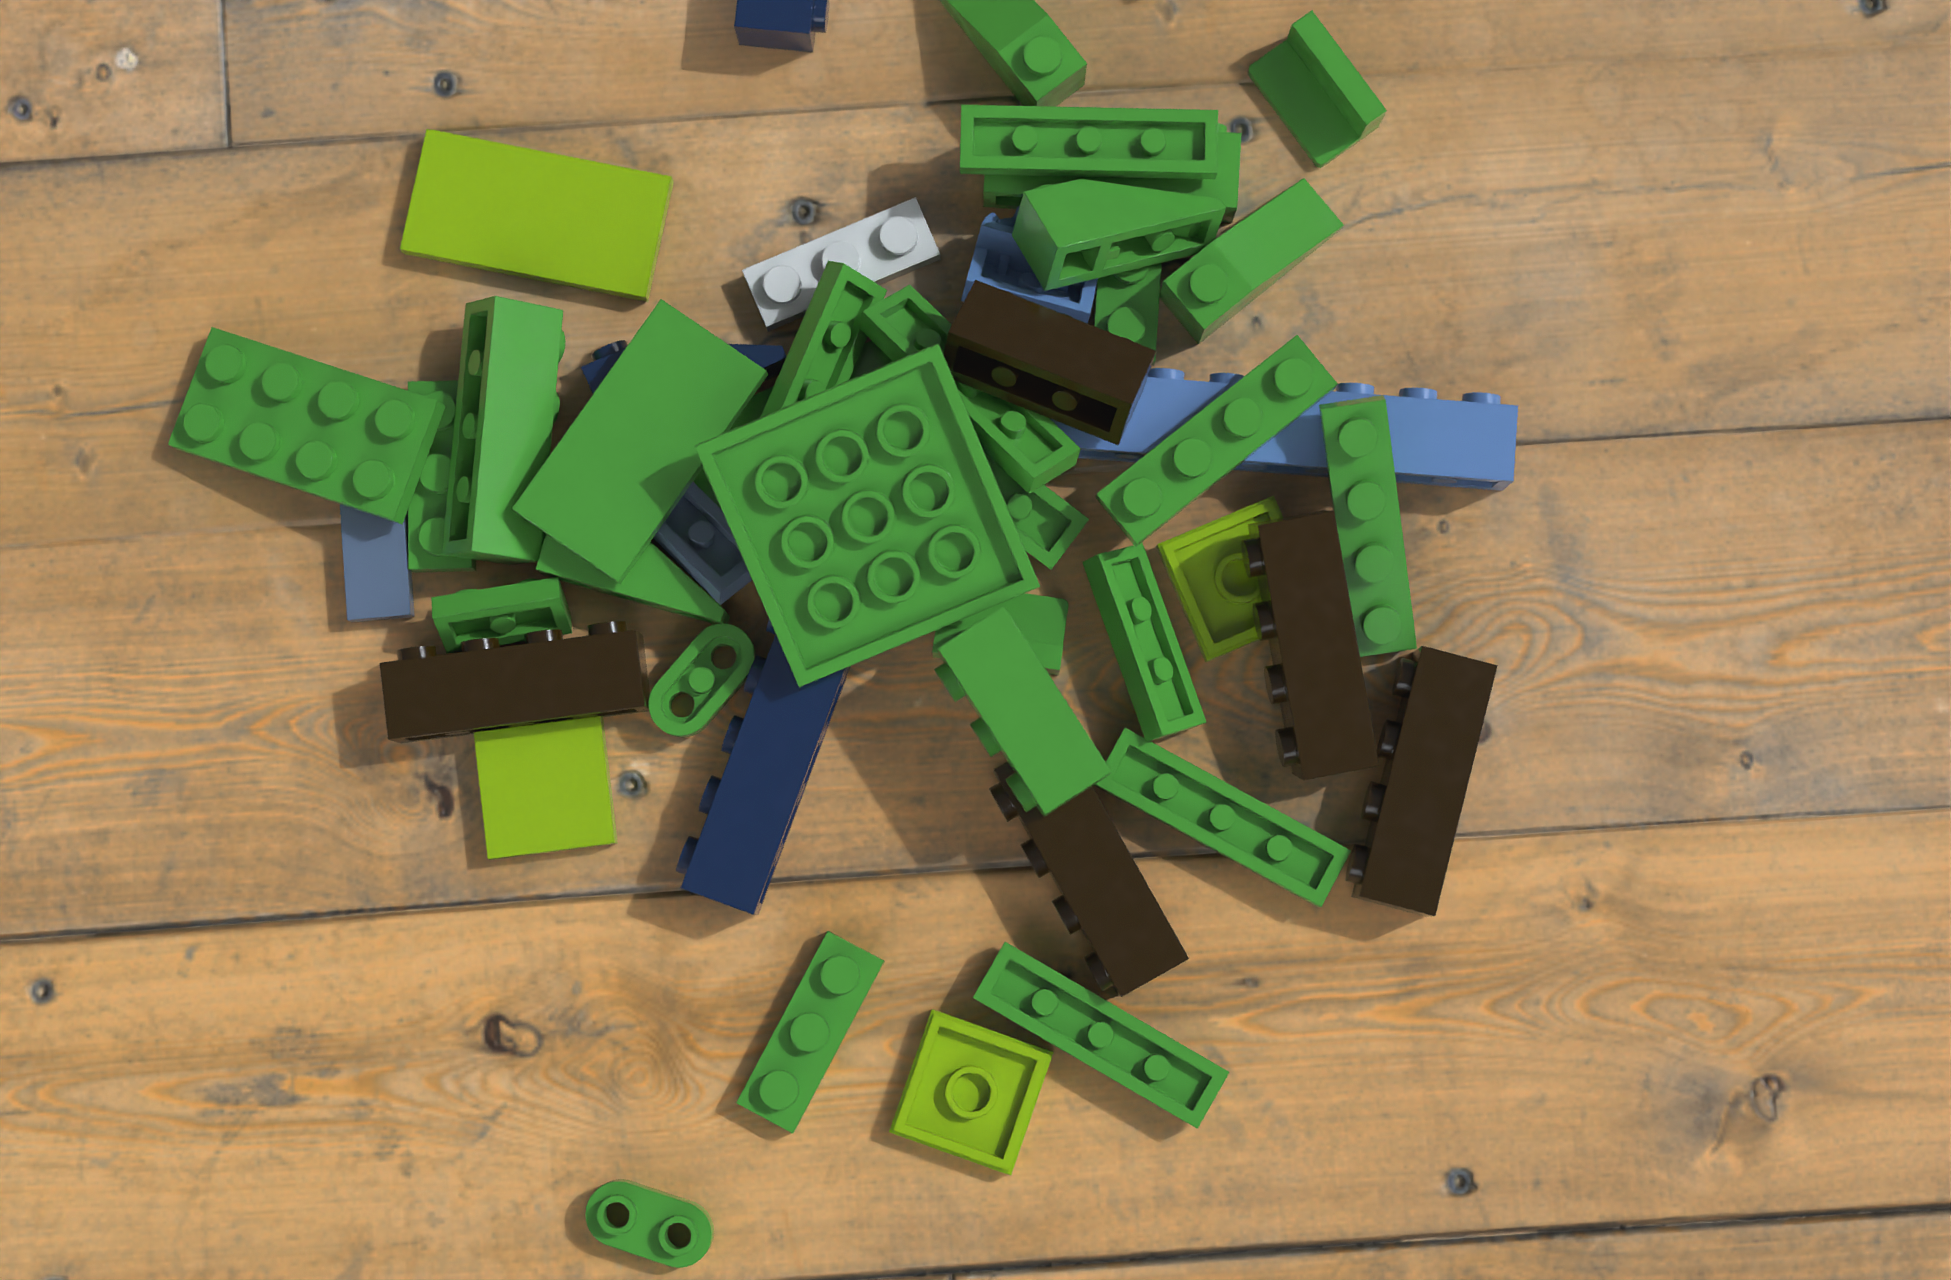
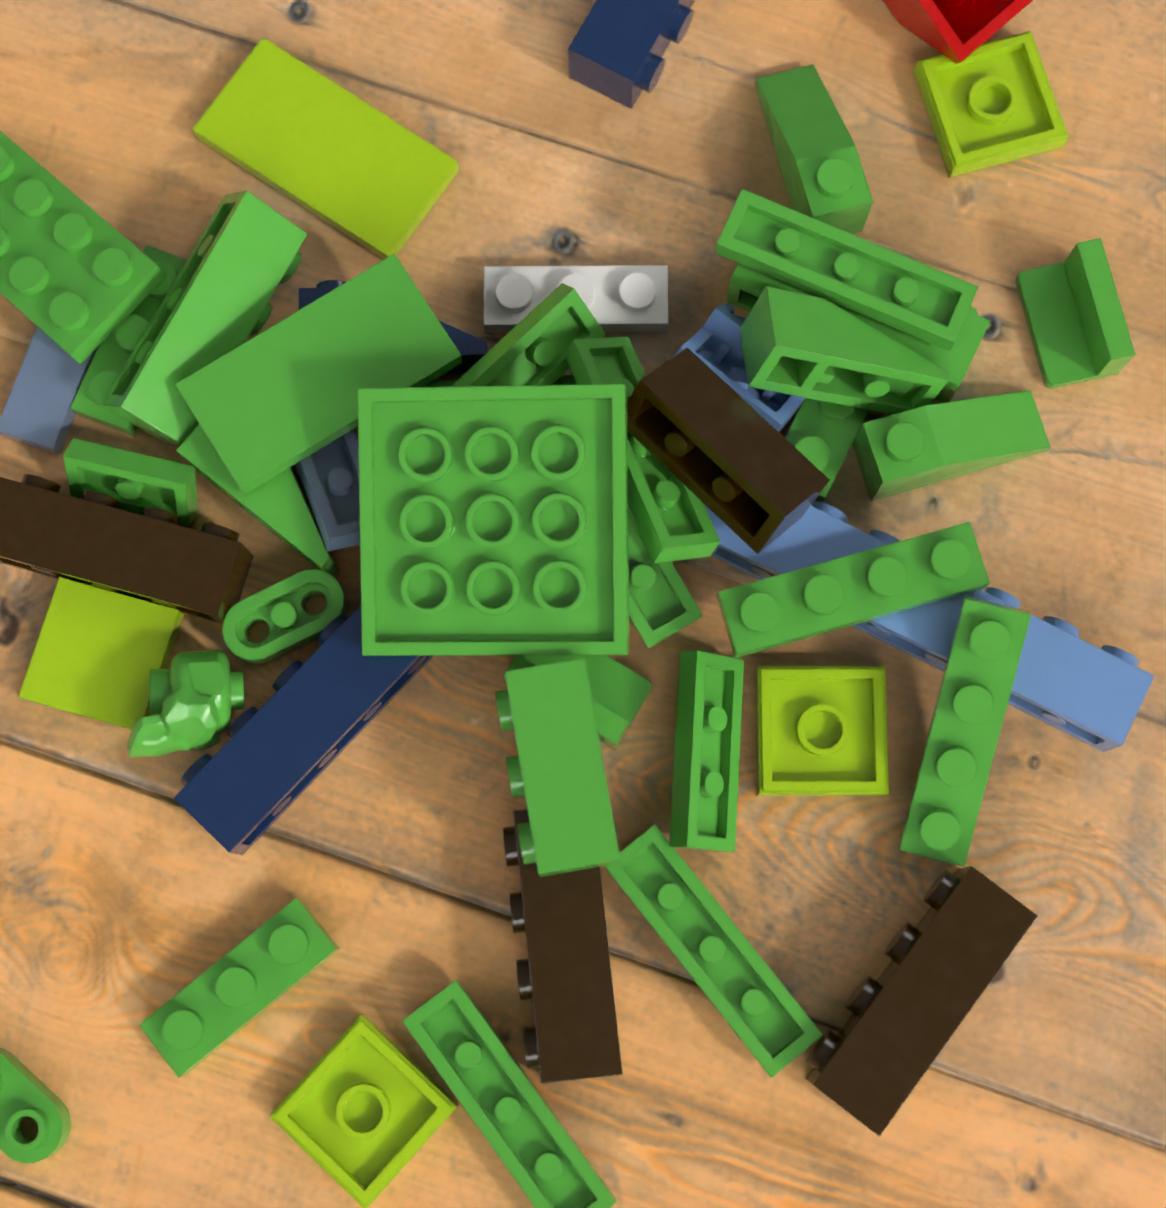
camera: 25 degrees right, 5 degrees down
(653, 797) = (188, 704): none -> bright green head
(1311, 645) = (864, 822): dark brown brick -> none

